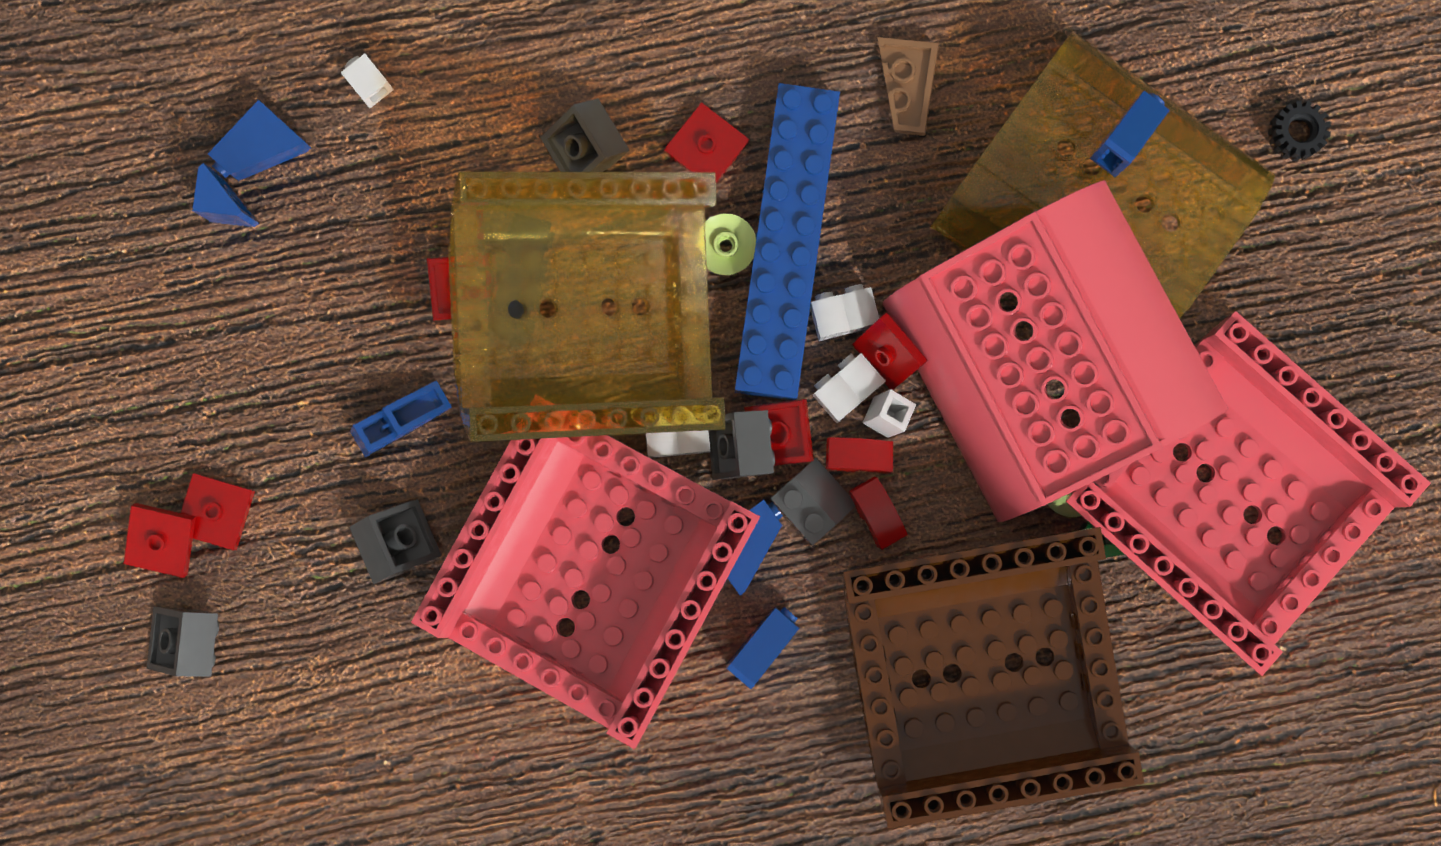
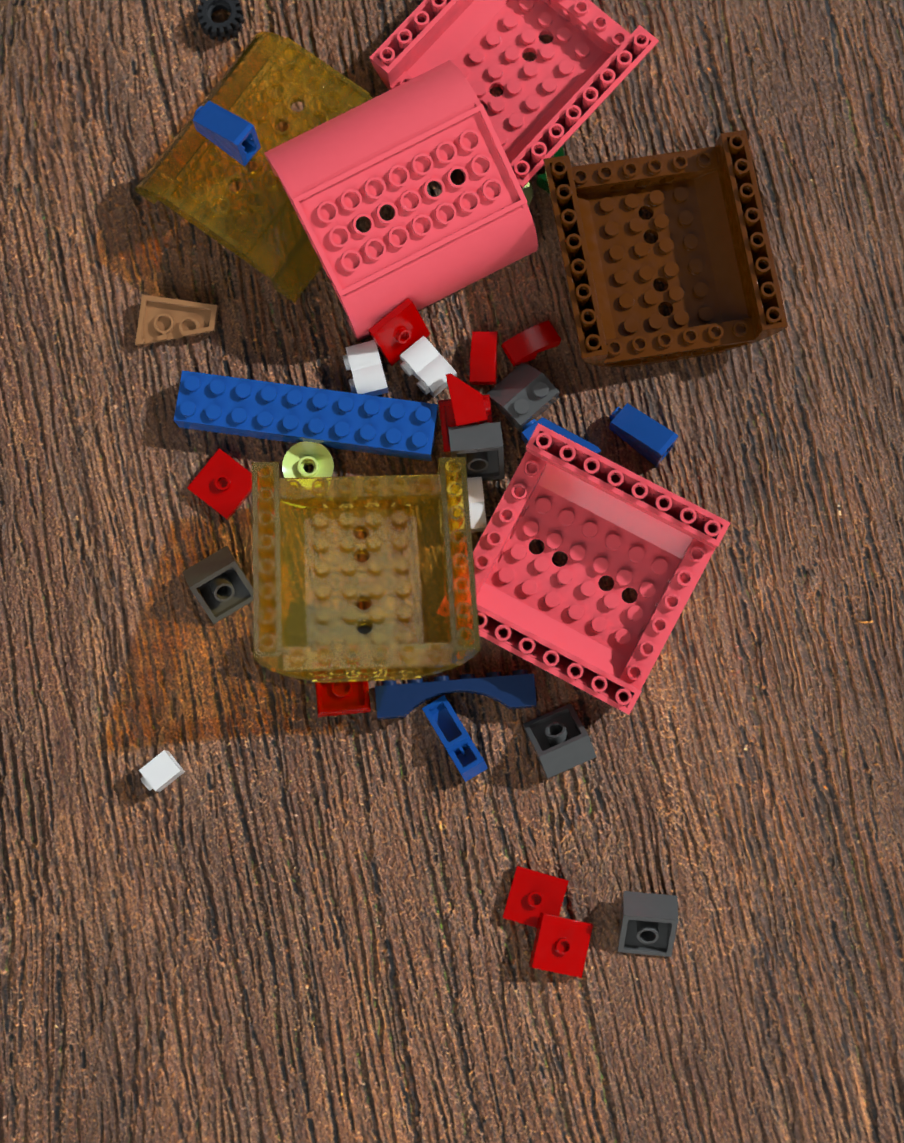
camera: 85 degrees left, 5 degrees down
(218, 201) = (267, 894): blue slope -> none
(256, 144) = (215, 866): blue slope -> none
(453, 485) = (399, 700): none -> dark blue arch
(799, 432) = (466, 402): none -> red slope
(889, 413) = (450, 332): white brick -> none

